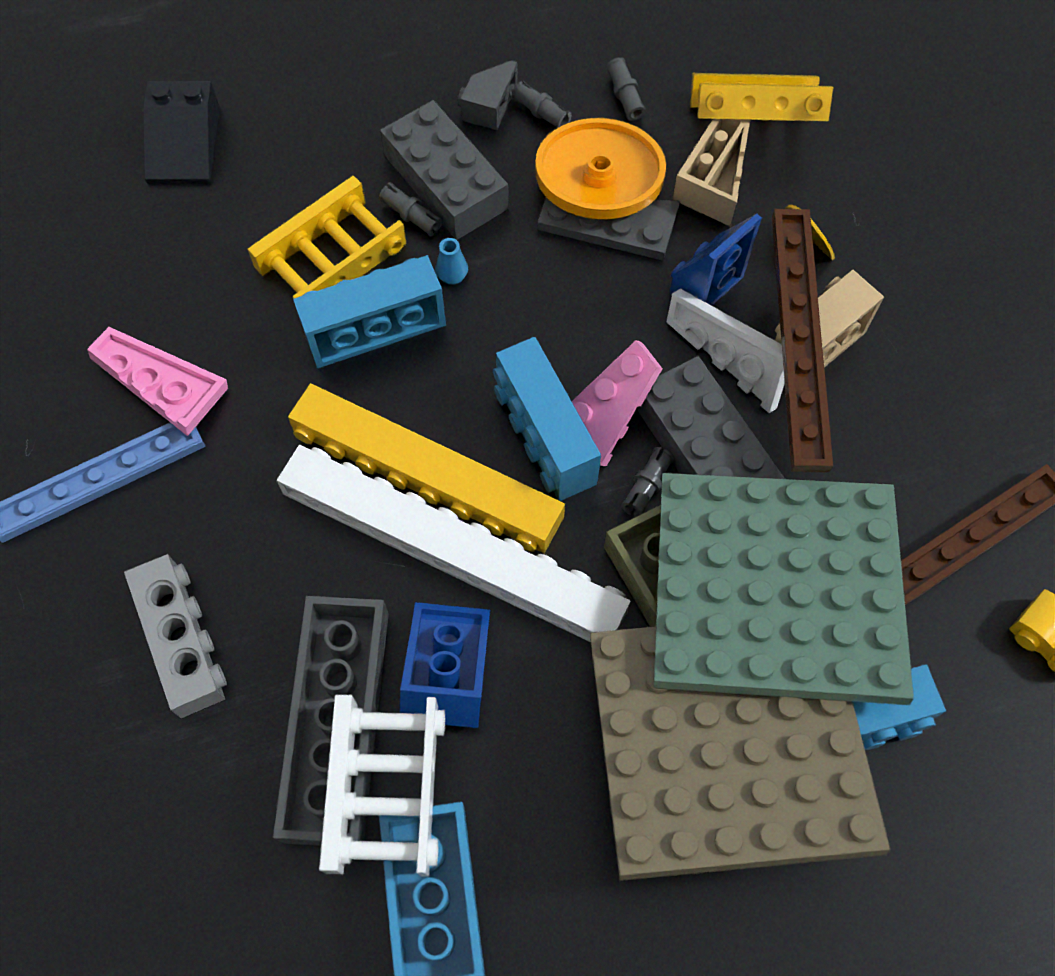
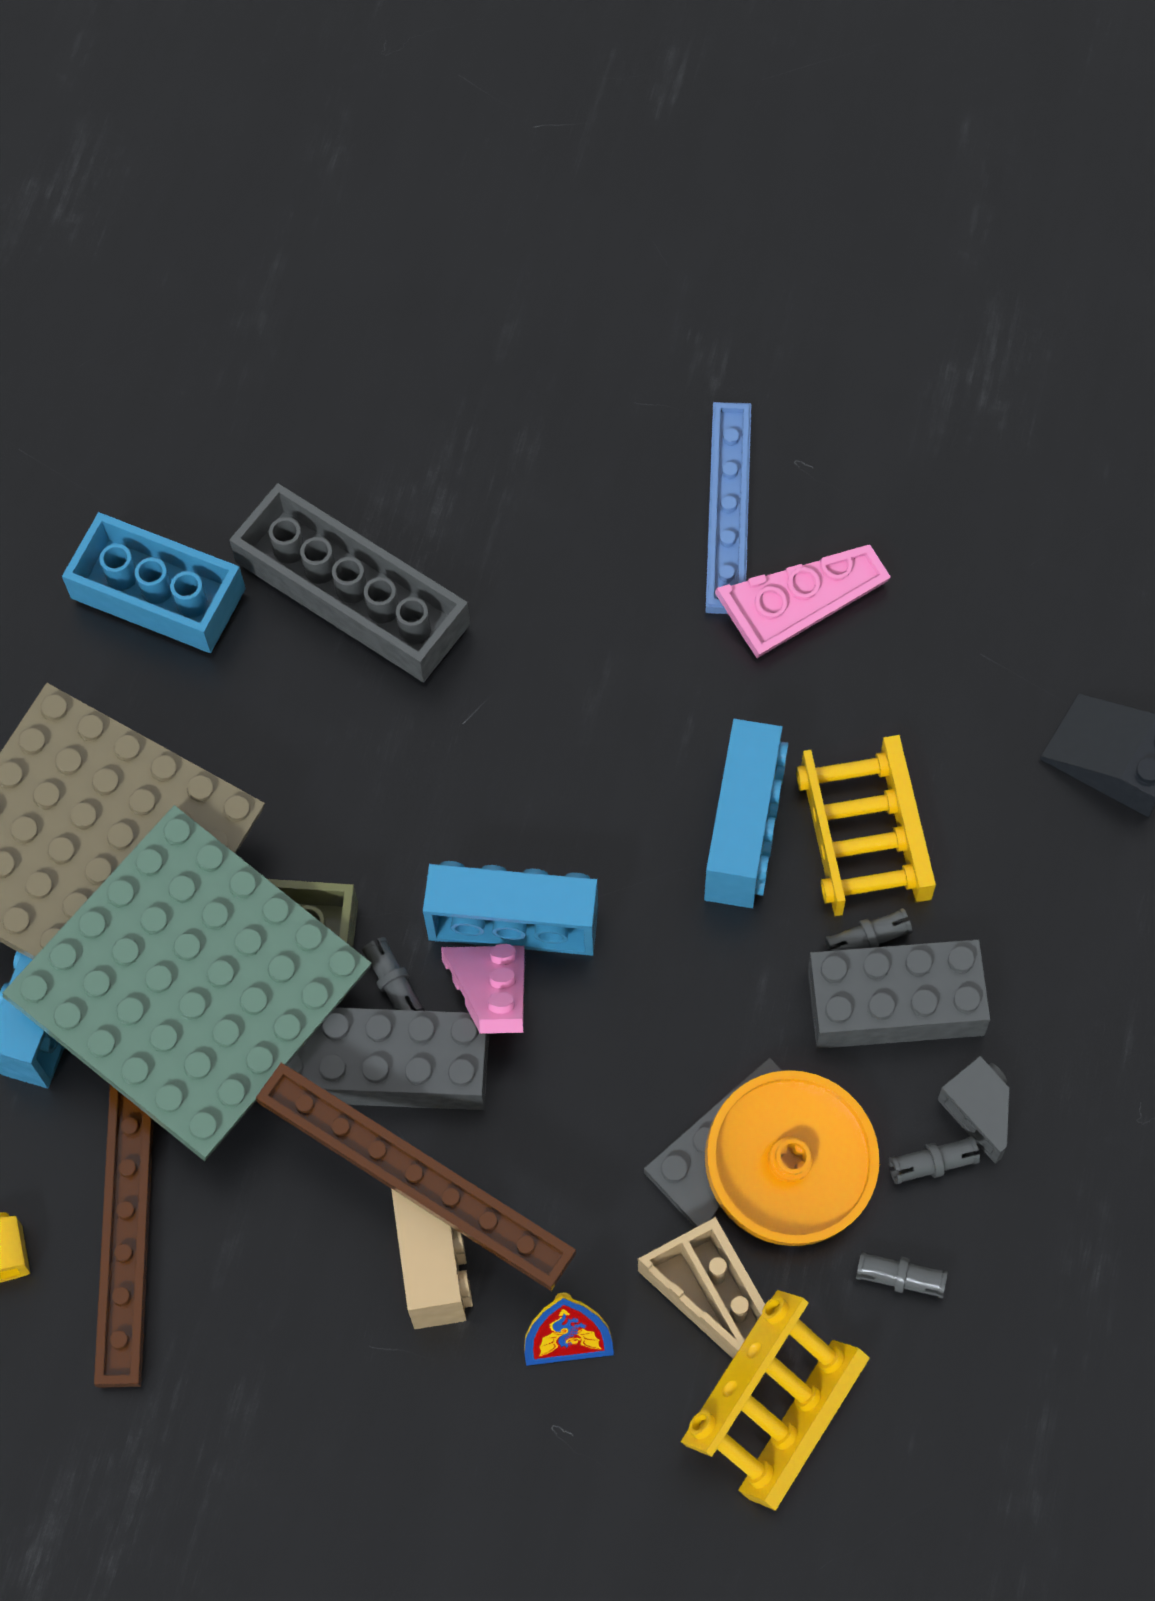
camera: 125 degrees right, 0 degrees up
(148, 586) = (504, 485): light grey brick -> none
(344, 805) = (259, 535): white fence -> none
(427, 468) = (544, 782): yellow brick -> none
(446, 662) = (342, 700): blue slope -> none
(451, 264) = (767, 935): dark azure cone -> none
(452, 545) = (447, 764): white brick -> none
(718, 263) = (583, 1187): blue slope -> none
(732, 346) = (548, 1138): white wing -> none

